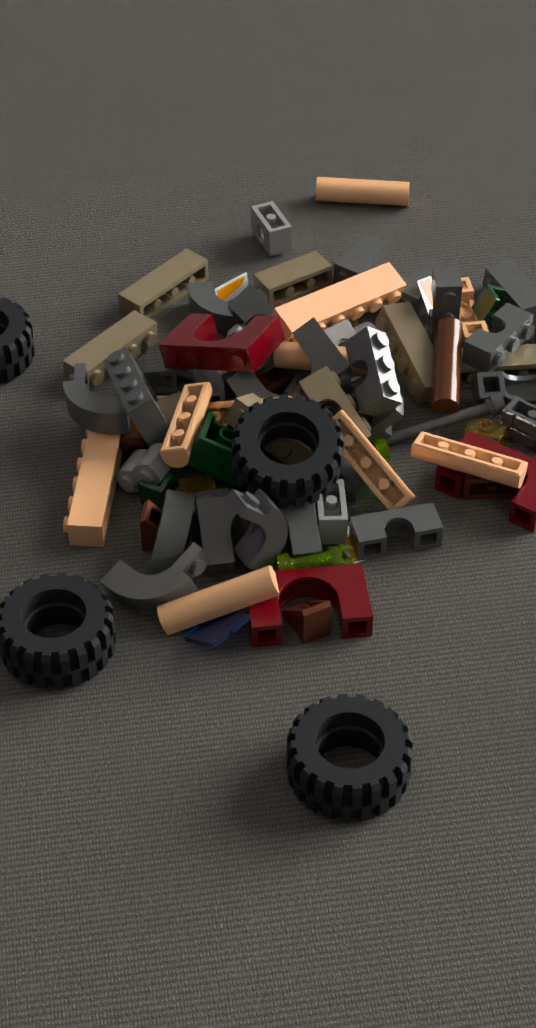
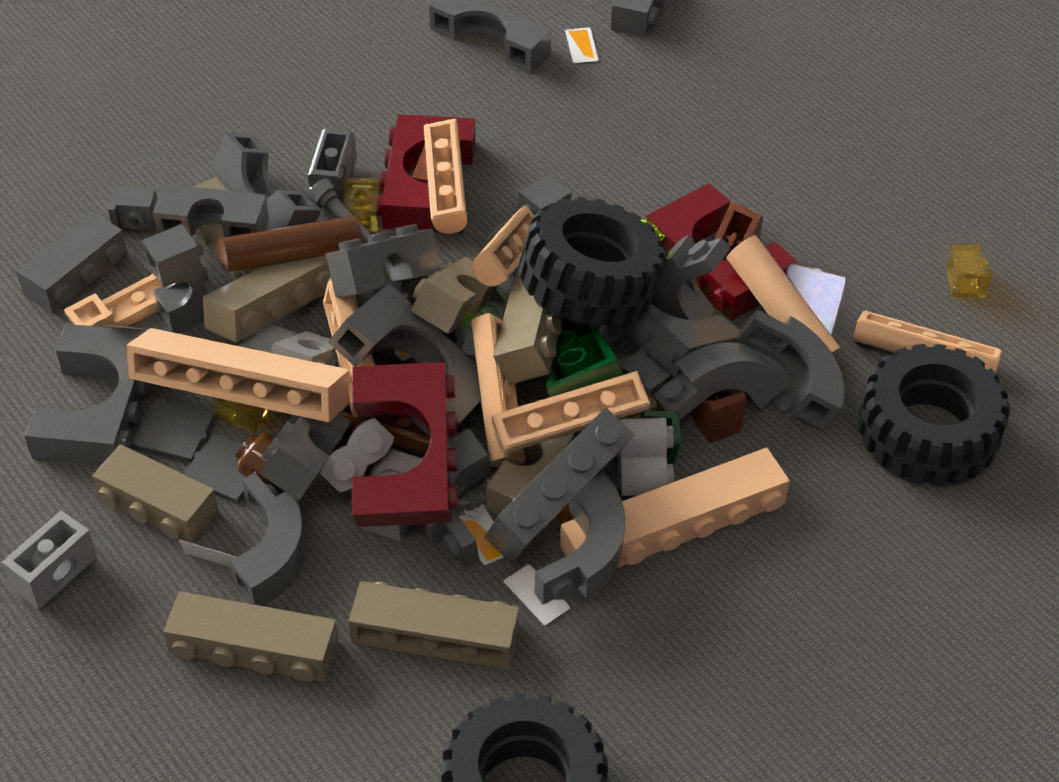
camera: 120 degrees left, 5 degrees up
(124, 678) = (896, 334): none -> light nougat brick
(175, 746) = (968, 271): none -> clear yellow brick
(349, 791) = (875, 171): black tyre -> none
(488, 302) = (120, 267): dark green panel -> none

